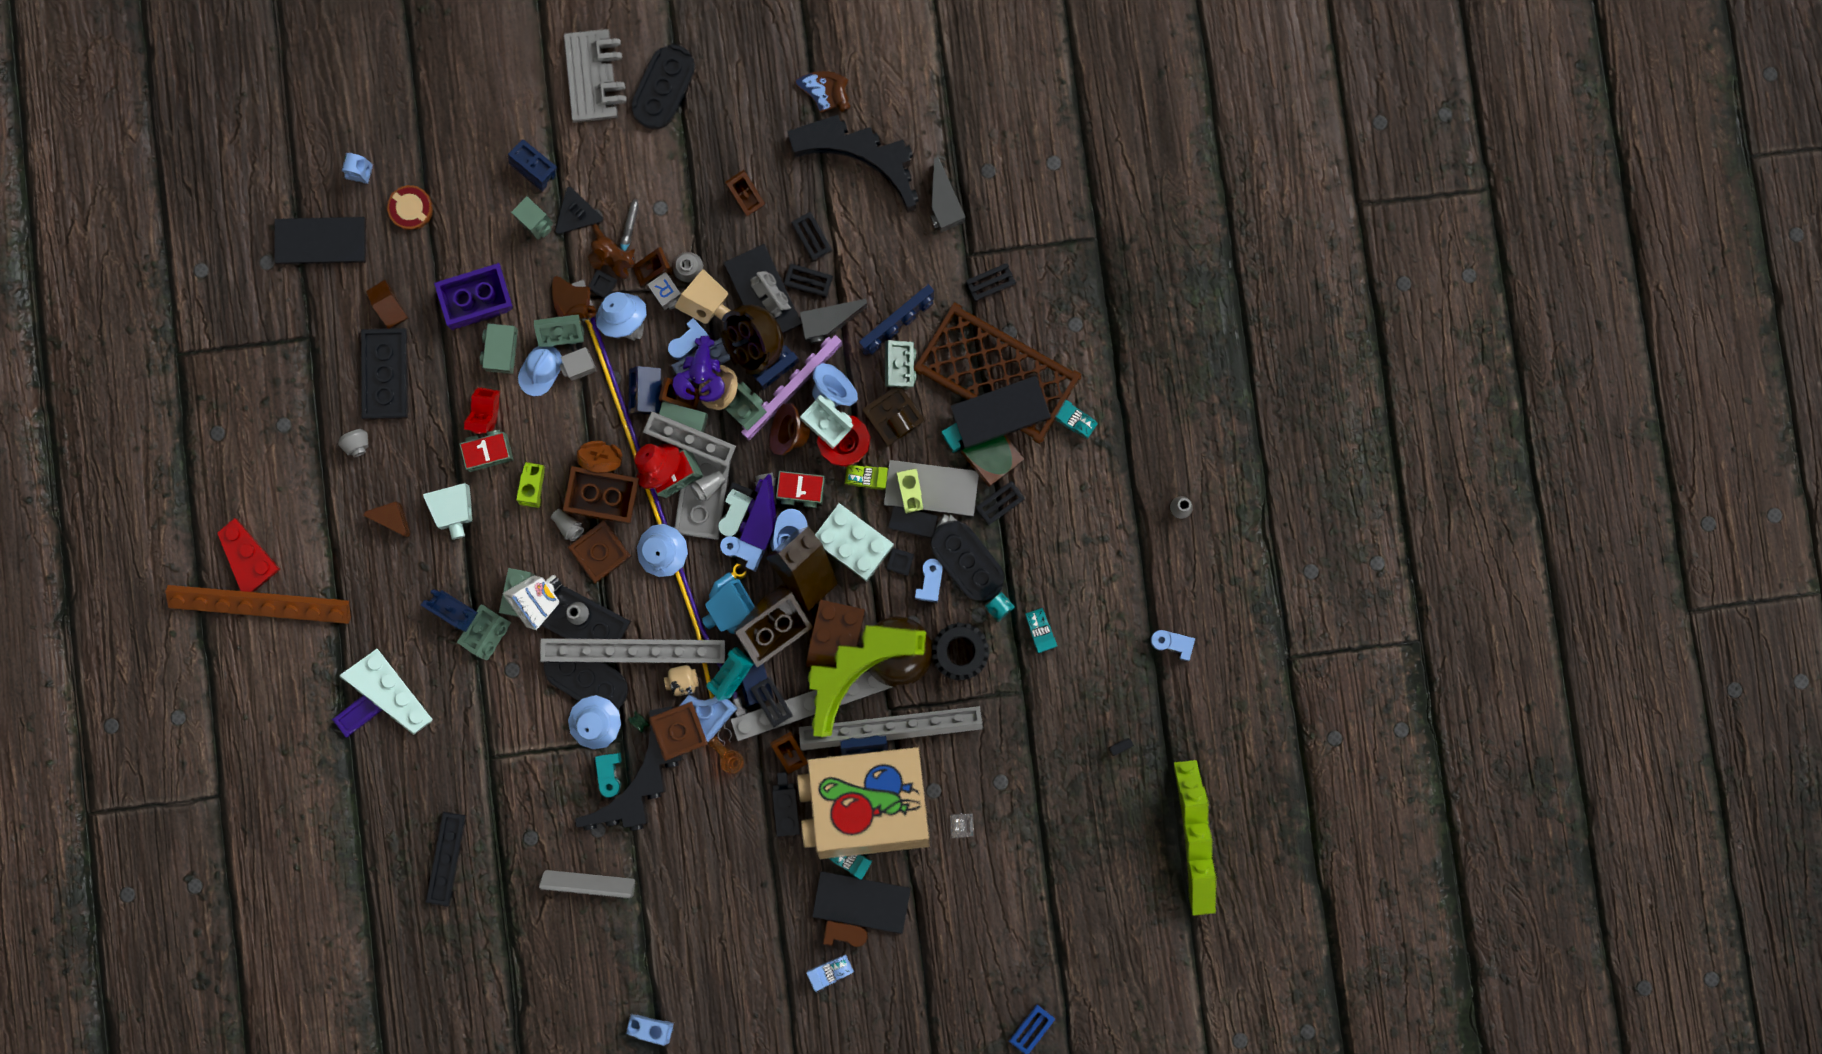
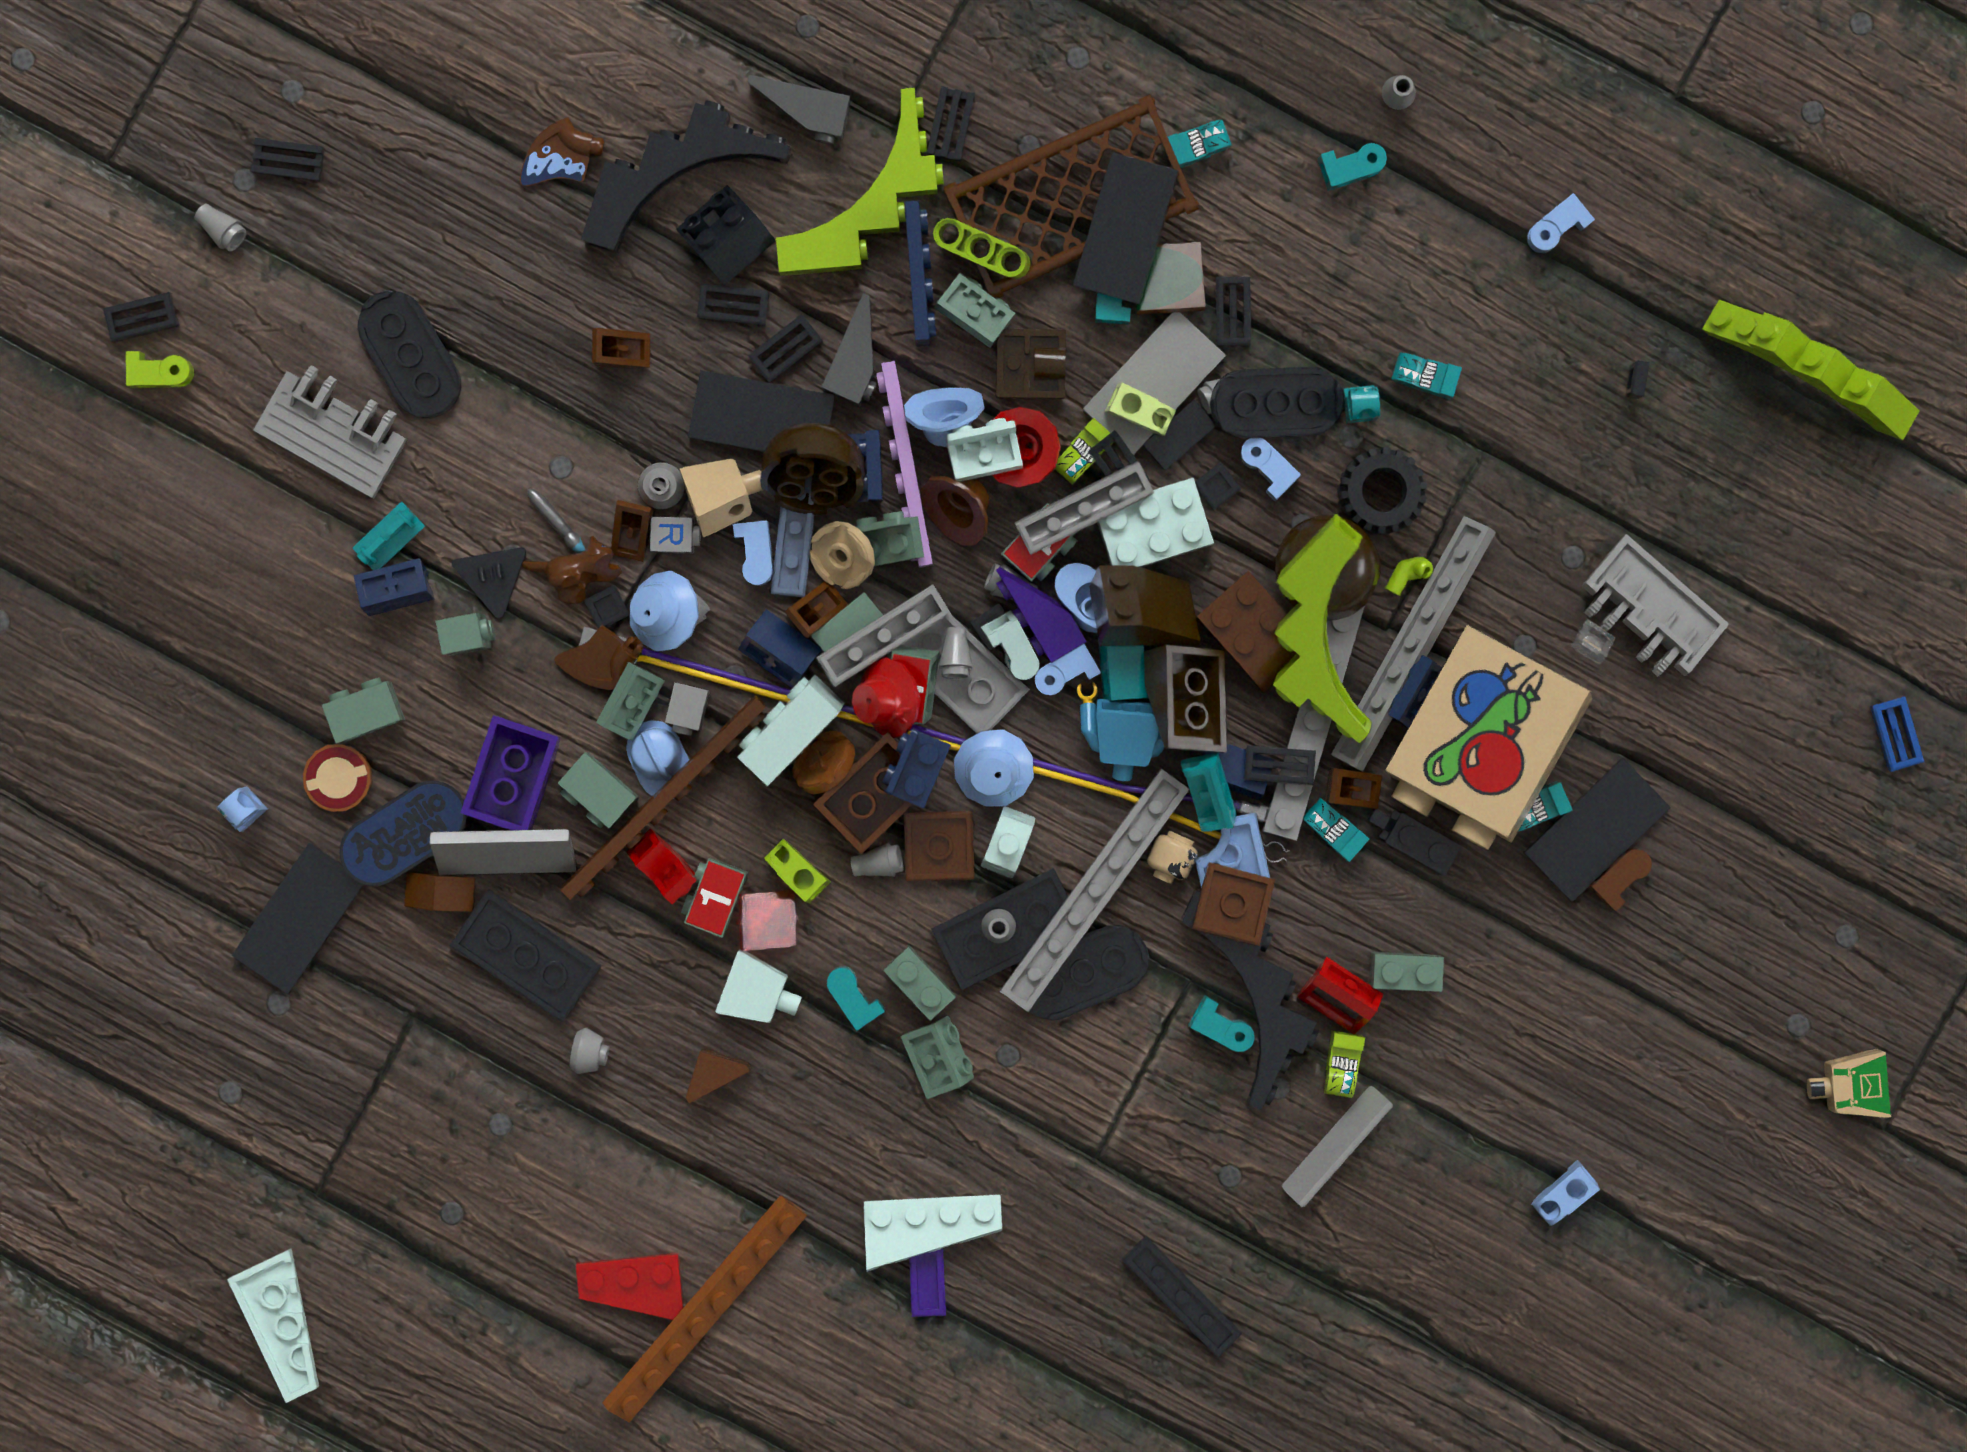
camera: 55 degrees left, 5 degrees up
(93, 381) = (277, 1319): none -> light aqua wing
(403, 262) = (399, 833): none -> tile
(430, 321) = (503, 852): none -> light grey tile
(450, 609) = (881, 1078): dark blue hinge -> none
(454, 195) = (362, 711): none -> sand green brick
(482, 563) = (843, 986): none -> teal leg
(493, 487) = (767, 920): none -> clear red piece
(511, 385) = (653, 809): none -> reddish brown plate
(534, 599) = (946, 966): white torso -> none
(557, 144) = (388, 537): none -> teal hinge
(599, 717) = (1144, 989): light blue hat -> none
(603, 424) = (789, 728): none -> light aqua brick
(627, 586) = (1008, 842): none -> light aqua torso
(629, 506) = (917, 767): none -> dark blue bracket
(635, 854) = (1343, 1063): none -> lime leg
(638, 721) = (1184, 945): clear green bush -> none
(675, 826) = (1346, 989): none -> red tile
(700, 371) = (810, 563): dark purple animal -> none
(709, 853) = (1406, 971): none -> sand green brick
(727, 757) = (1305, 867): clear orange bar -> none
(759, 758) = (1335, 830): none -> teal leg
(762, 582) = (1122, 672): none -> teal hinge
(764, 285) = (757, 404): light grey hinge -> none
(829, 972) = (1654, 928): light blue leg -> none
(834, 496) = (1084, 507): none -> light grey slope
(845, 205) = (726, 234): none -> black slope
(868, 514) = (1104, 445): none -> black tile
(928, 697) = (1408, 570): none -> lime arm
(935, 333) = (970, 236): none -> lime beam
(946, 276) = (906, 174): none -> lime arch
(1007, 845) = (1656, 604): none -> light grey hinge
(1128, 515) = (1353, 167): none -> teal leg

